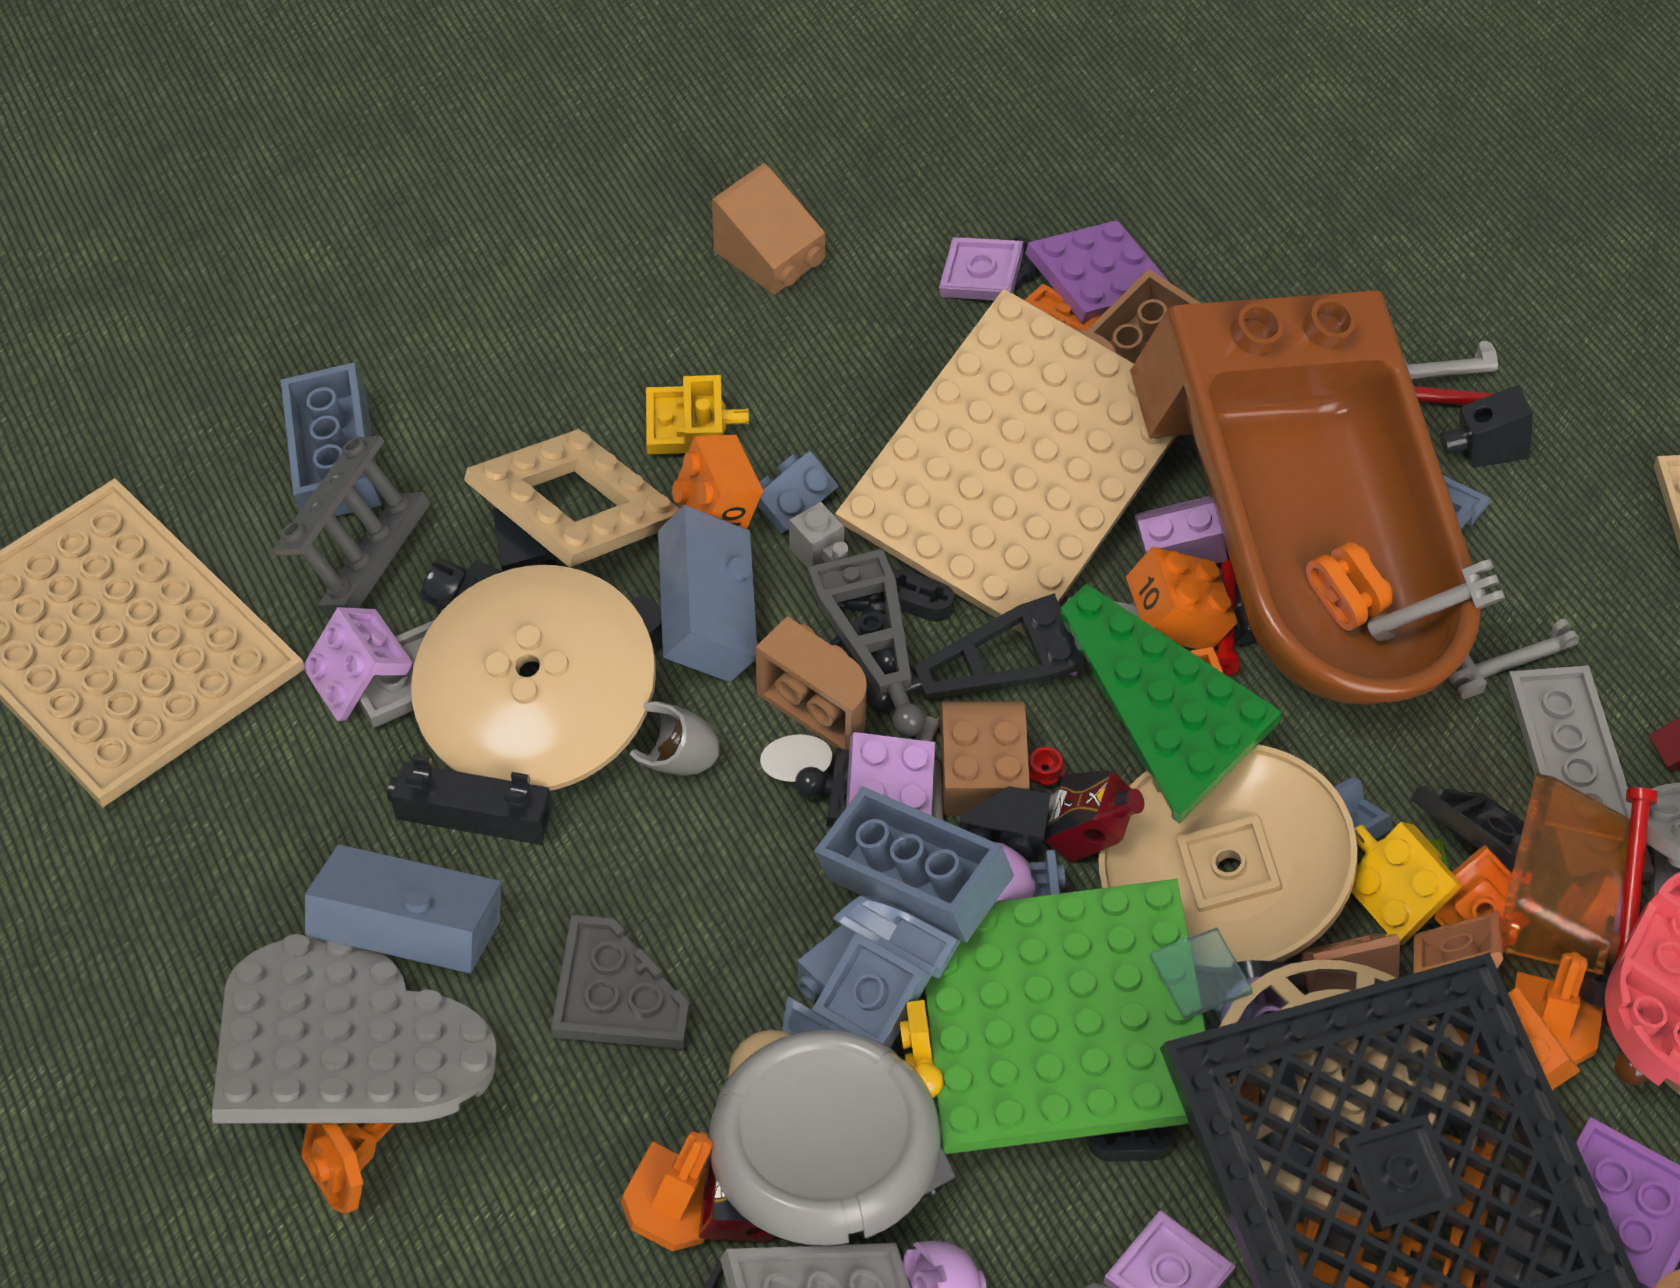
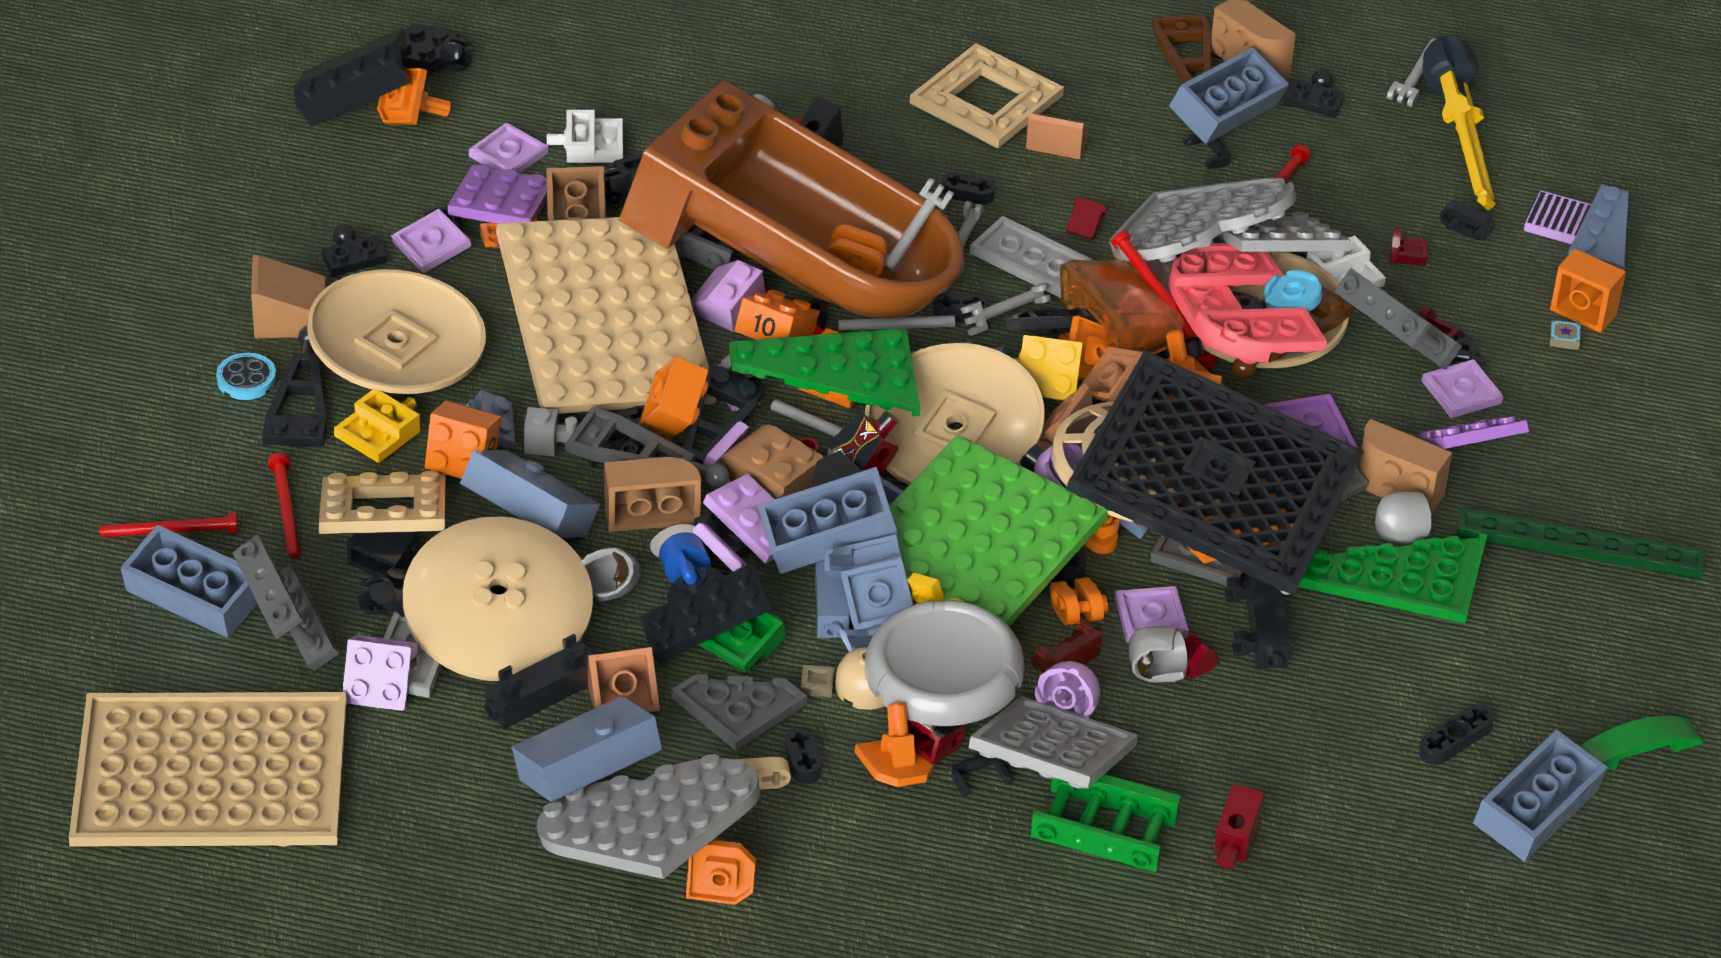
camera: 50 degrees left, 10 degrees down
(447, 411) = (176, 526): none -> red bar
(531, 1085) = (765, 771): none -> tan beam
(538, 869) = (624, 674): none -> nougat slope
(560, 388) = (279, 464): none -> red bar
(610, 1109) = (808, 754): none -> black beam
(629, 372) = (297, 429): none -> black plate
(652, 280) = (246, 376): none -> tile
(713, 913) = (748, 641): none -> green plate
(720, 847) = (701, 598): none -> black plate
(726, 1030) = (817, 680): none -> dark tan tile
(808, 802) = (718, 546): none -> lavender tile
(824, 294) = (366, 312): none -> tan dish
(900, 231) = (351, 253): none -> black plate
(959, 602) = (674, 398): none -> orange brick
(971, 691) = (732, 438): none -> lavender tile
(1014, 1238) = (1076, 648): none -> clear red hinge
(1096, 728) = (805, 418): none -> light grey bar
(1098, 56) = (352, 78): none -> black piece
(1102, 1204) = (1082, 599): none -> orange brick
(1129, 109) = (408, 101): none -> orange piece
(1175, 230) = (508, 149): none -> lavender tile
(1200, 973) = (1026, 460): clear light blue piece -> none
(1229, 79) = (434, 48): none -> black plate
(1262, 267) = (590, 138): none -> white plate
(1343, 711) = (896, 323): none -> light grey bar
(1417, 734) = (951, 304): none -> black beam
(1418, 760) = (980, 315): none -> light grey hinge
(1602, 605) = (969, 188): none -> black beam

